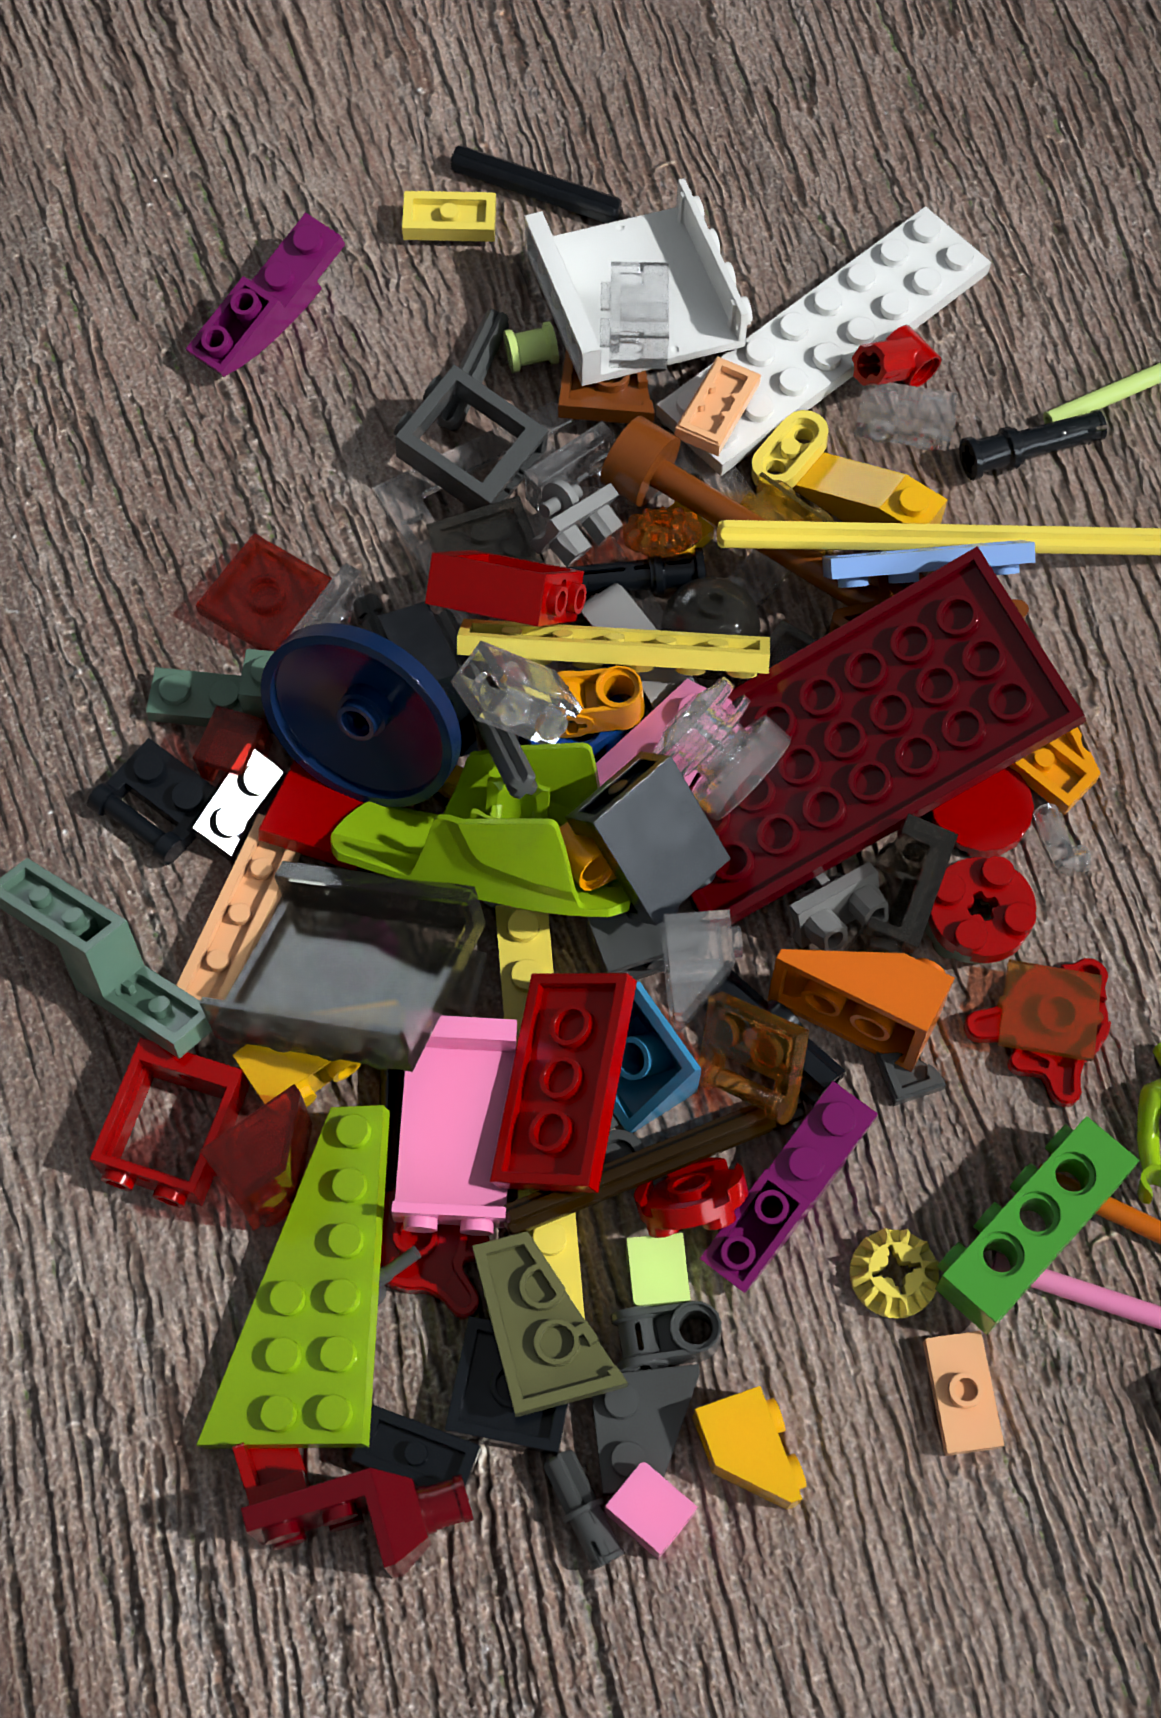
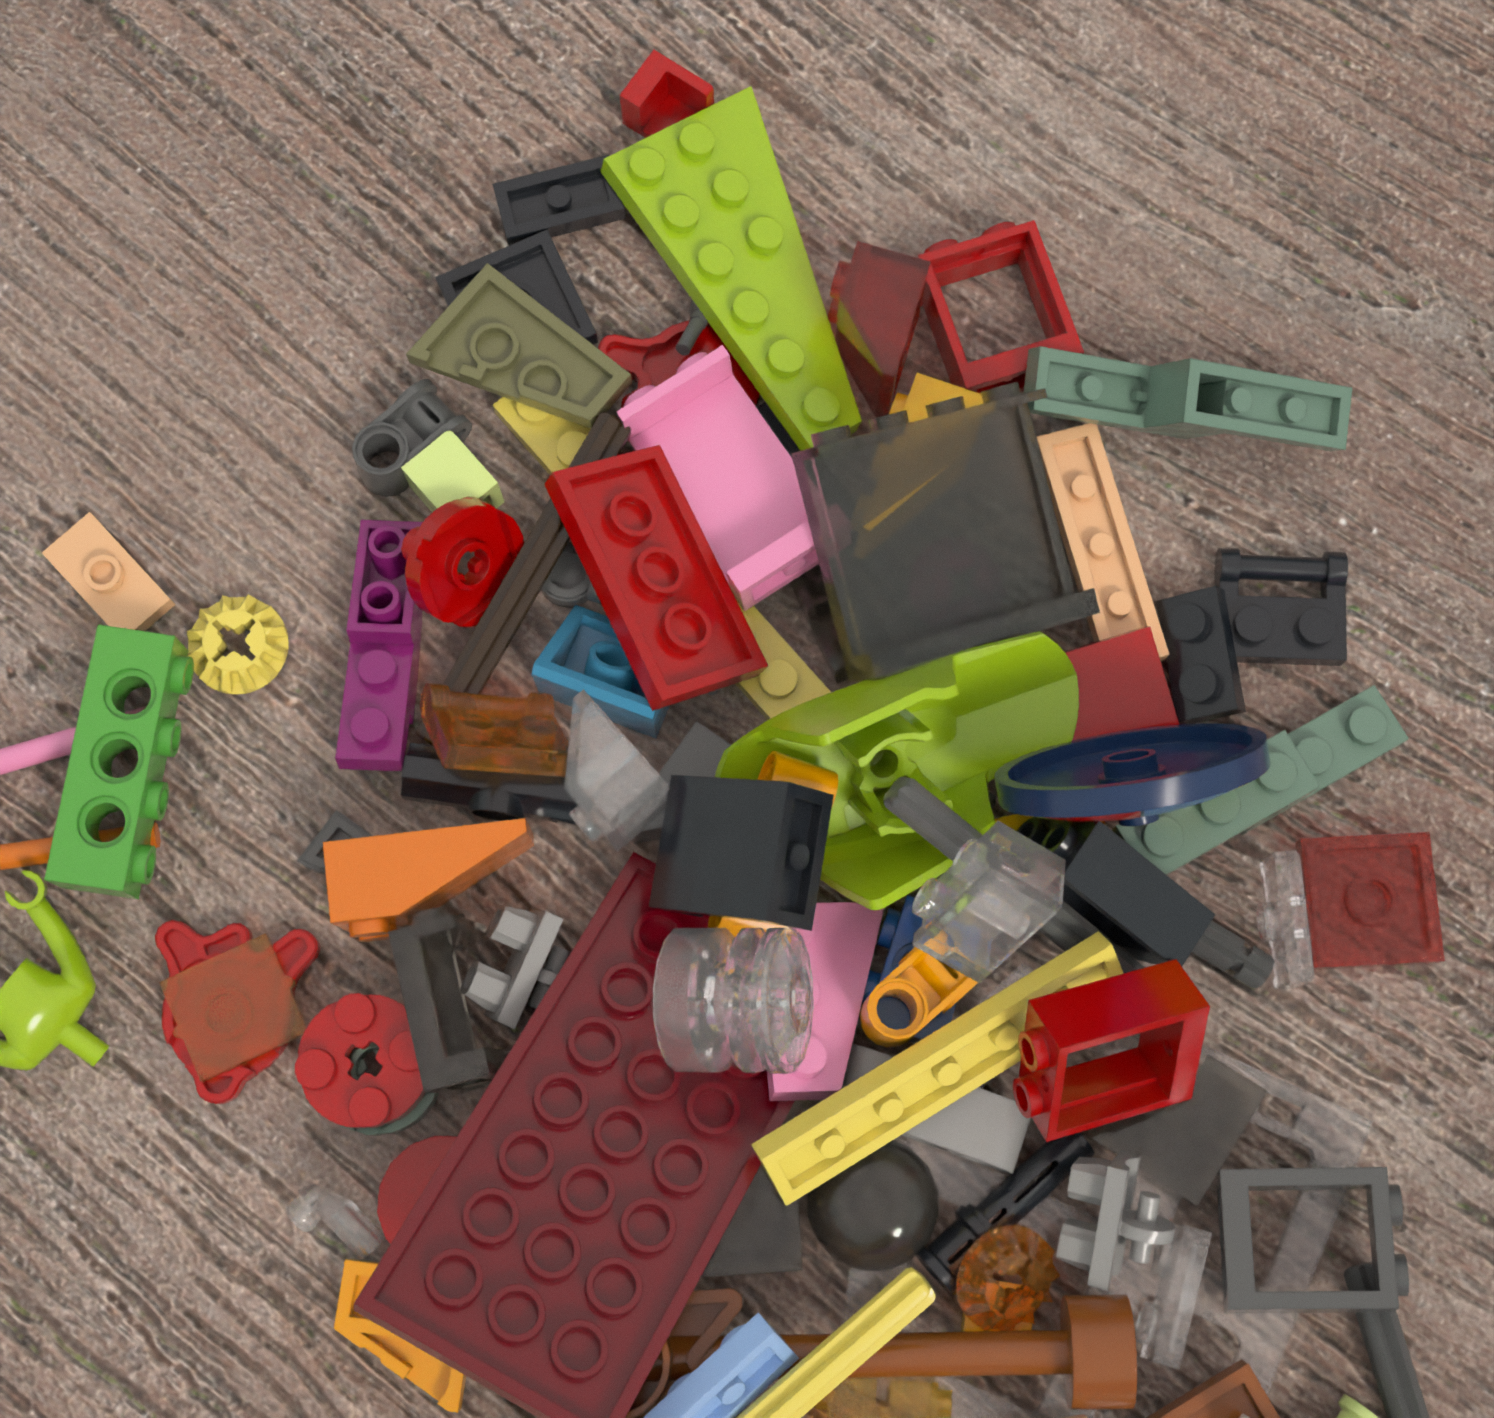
camera: 145 degrees right, 10 degrees up
(230, 742) = (1260, 694): clear red panel -> none
(398, 1510) = (561, 127): dark red plate -> none
(582, 1509) = (382, 253): dark grey axle -> none
(641, 1422) = (372, 345): dark grey wing -> none
(650, 1509) = (318, 281): bright pink panel -> none
(746, 1448) = (273, 391): yellow slope -> none

